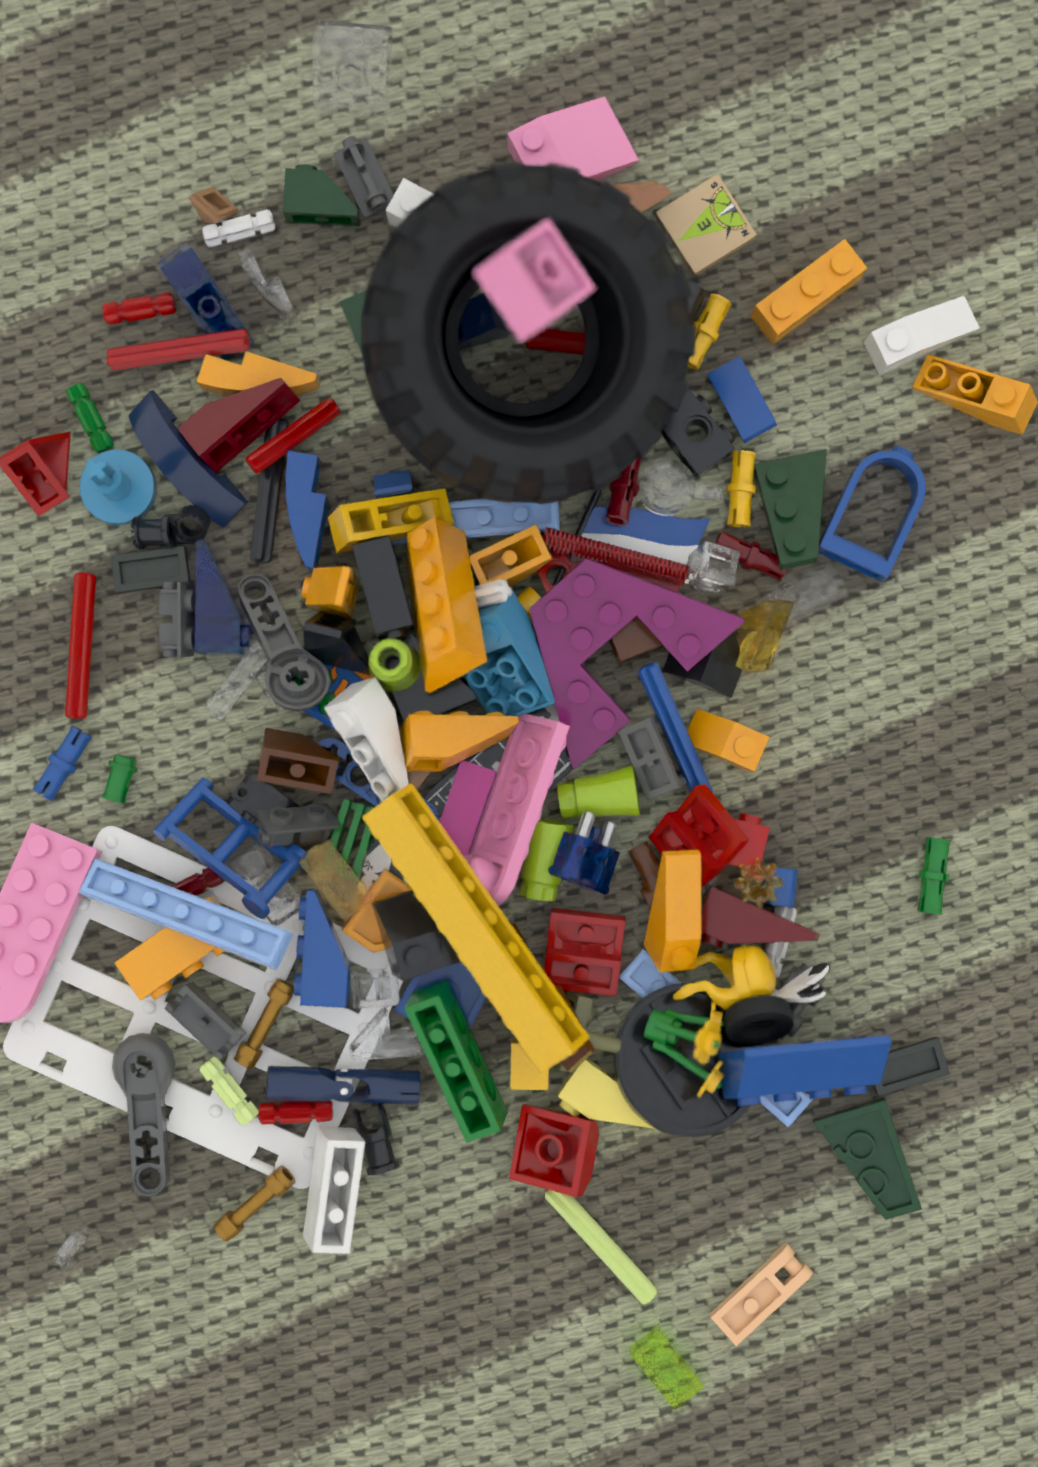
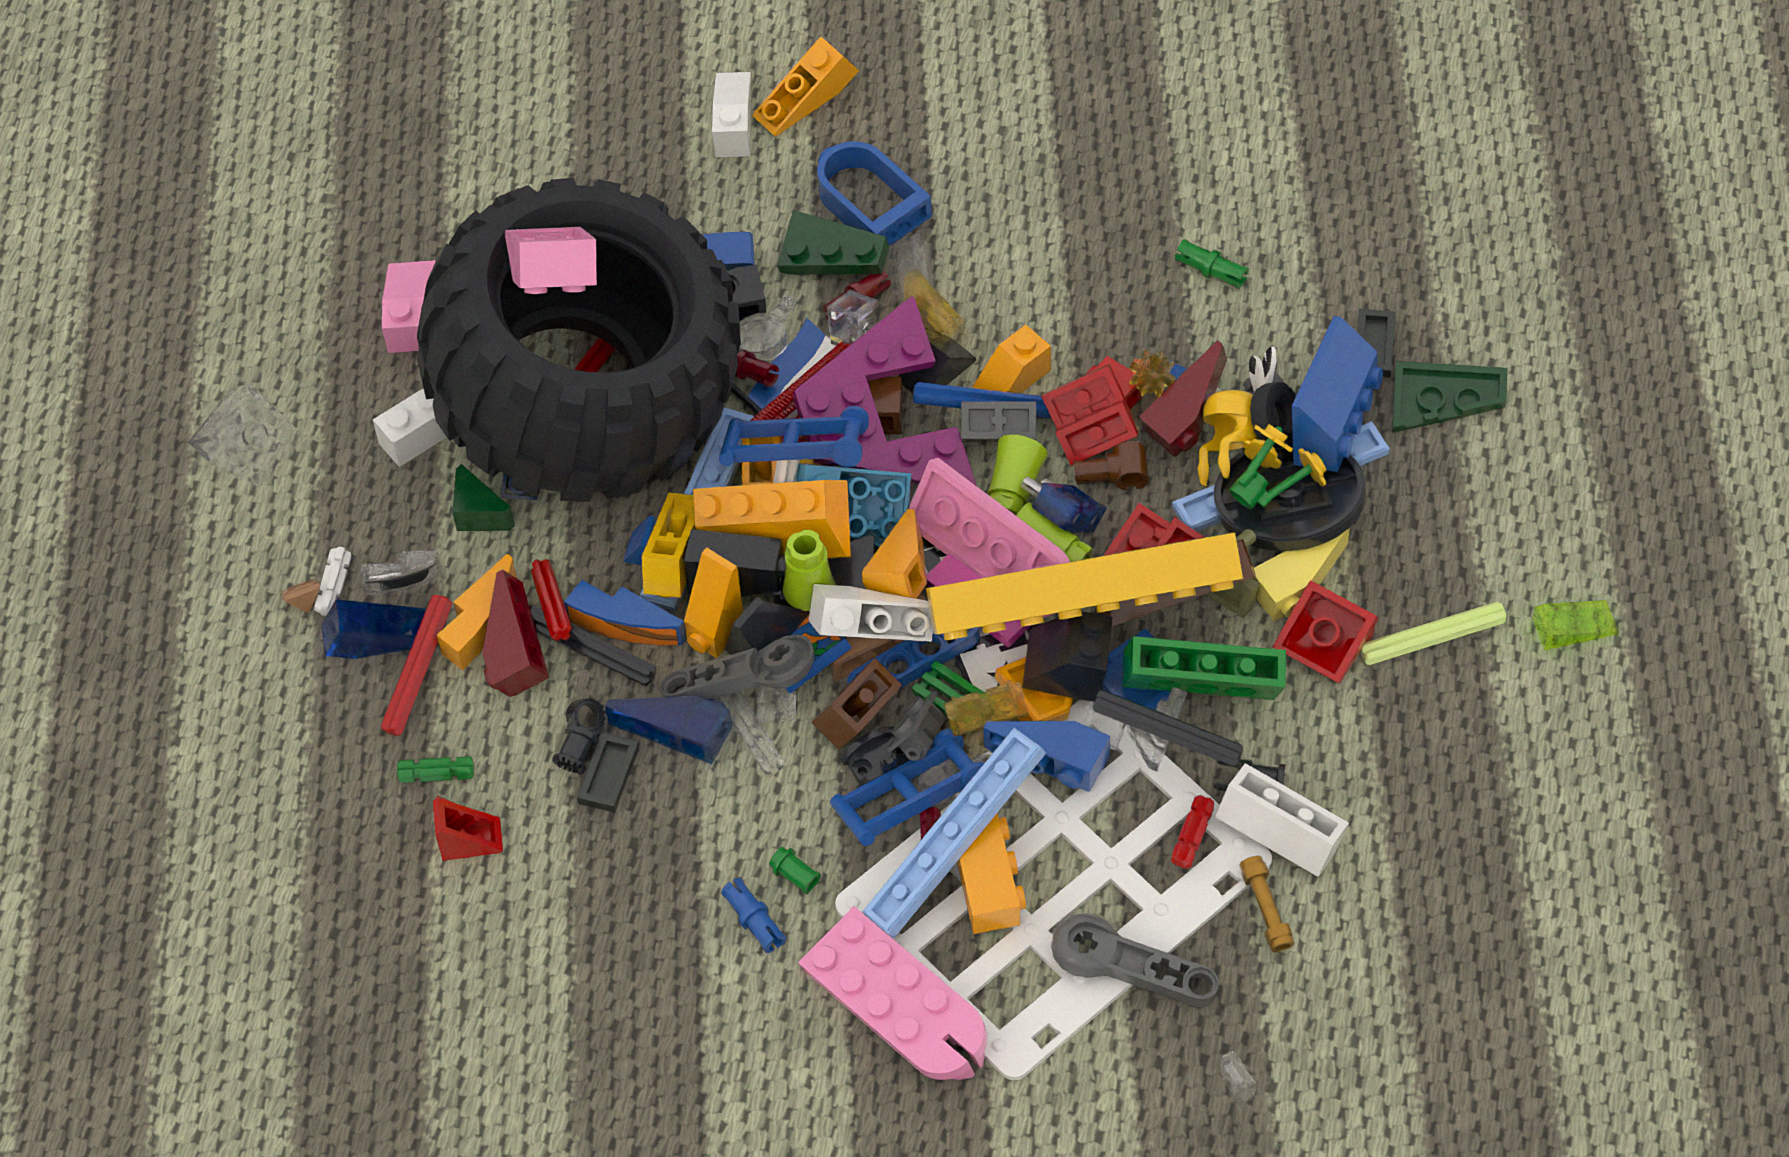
camera: 65 degrees left, 30 degrees down
(80, 645) = (648, 858): red axle -> none
(117, 487) = (514, 764): dark azure piece -> none
(139, 308) = (357, 690): red axle -> none
(179, 636) = (683, 762): dark grey hinge -> none
(180, 462) = (519, 699): dark blue slope -> none
(205, 1020) = (1067, 872): dark grey hinge -> none
(229, 1091) = (1145, 880): yellowish green axle -> none
(250, 1052) = (1116, 848): pearl gold bar -> none
(316, 199) = (346, 504): dark green slope -> none
(323, 1084) = (1175, 794): dark blue piece -> none
(364, 176) = (349, 466): dark grey hinge -> none
(370, 1058) = (1167, 728): none -> black axle
(515, 643) = (845, 451): none -> blue piece
(524, 1072) = (1235, 621): yellow brick -> none
(675, 912) = (1152, 449): light orange slope -> none
(741, 489) = (794, 283): yellow pin -> none
(760, 1295) = (1536, 523): light nougat plate -> none
(808, 291) = (649, 162): light orange brick -> none

